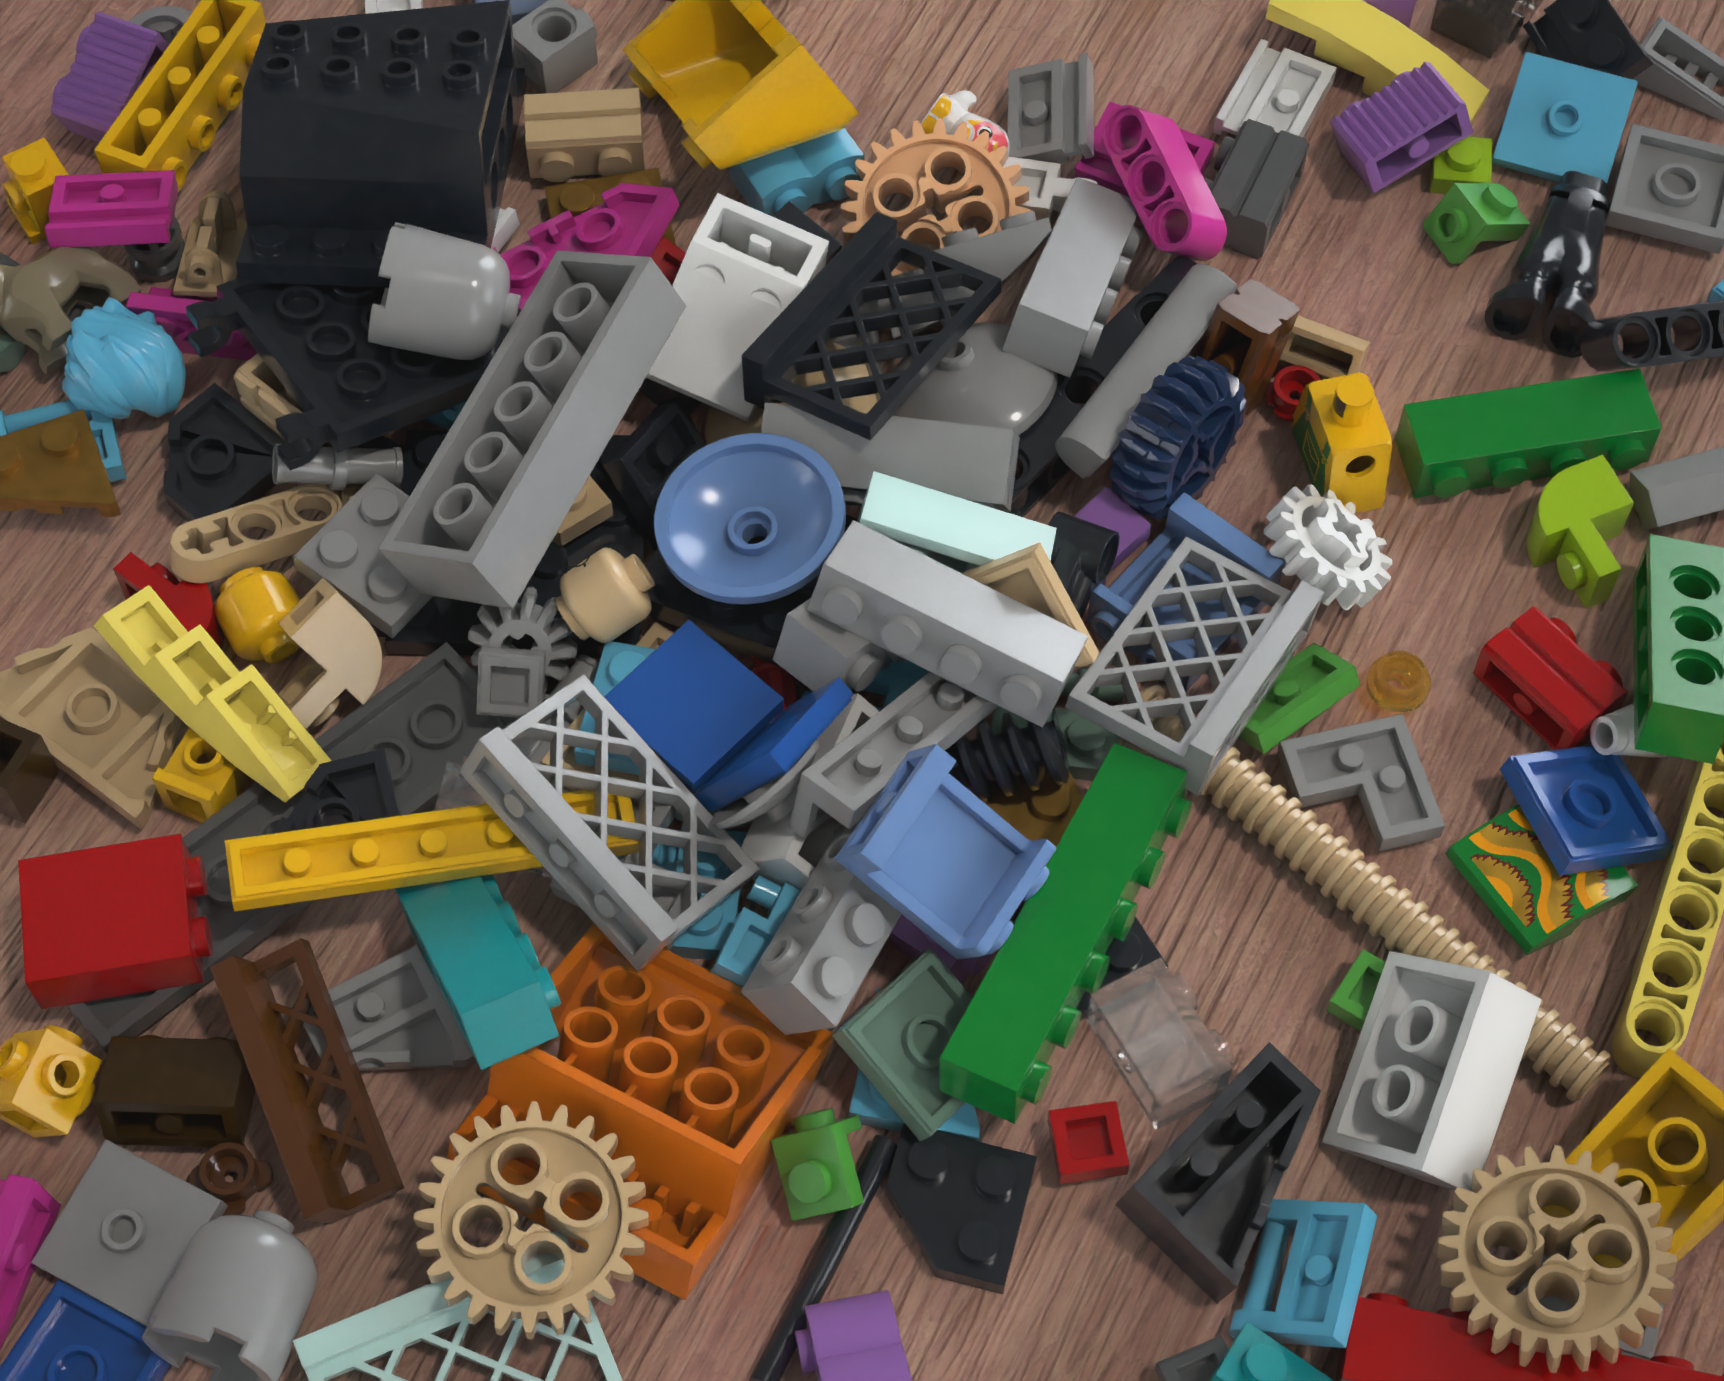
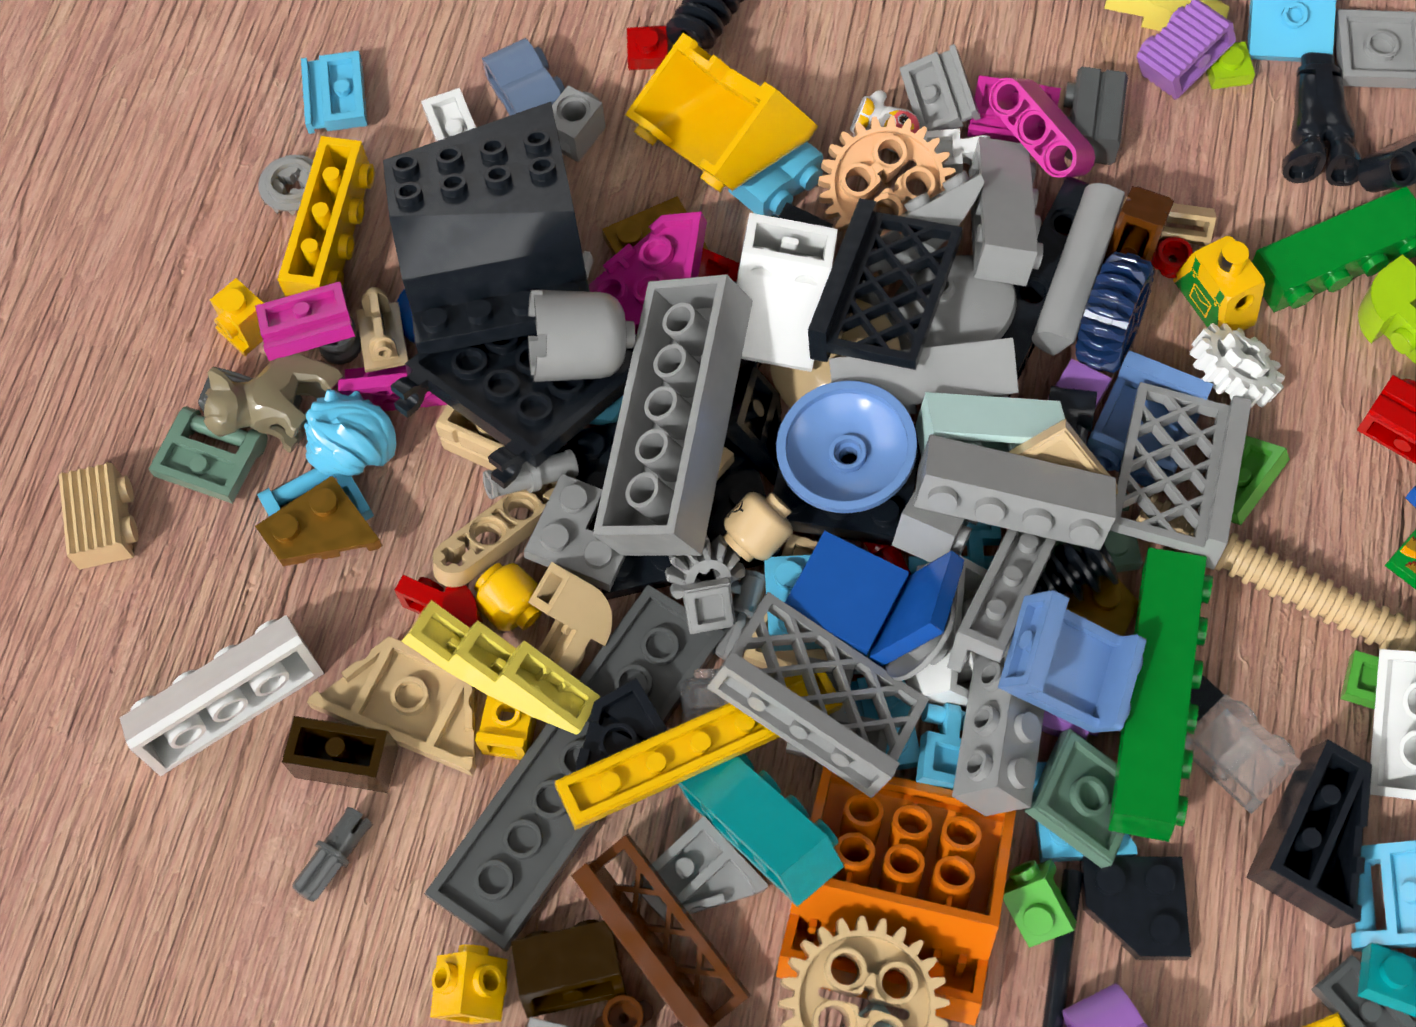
camera: 10 degrees left, 5 degrees up
(106, 73) = (264, 221): medium lavender brick -> none
(113, 921) = (484, 855): red brick -> none
(217, 456) = (438, 486): black plate -> none
(583, 133) = (618, 183): tan brick -> none
(1088, 1142) = (1213, 837): red plate -> none
(1276, 91) = (1088, 41): white plate -> none
(1371, 762) = (1315, 513): light grey plate -> none
(1404, 668) = (1313, 438): clear yellow plate -> none
(1474, 215) = (1250, 102): bright green bracket -> none

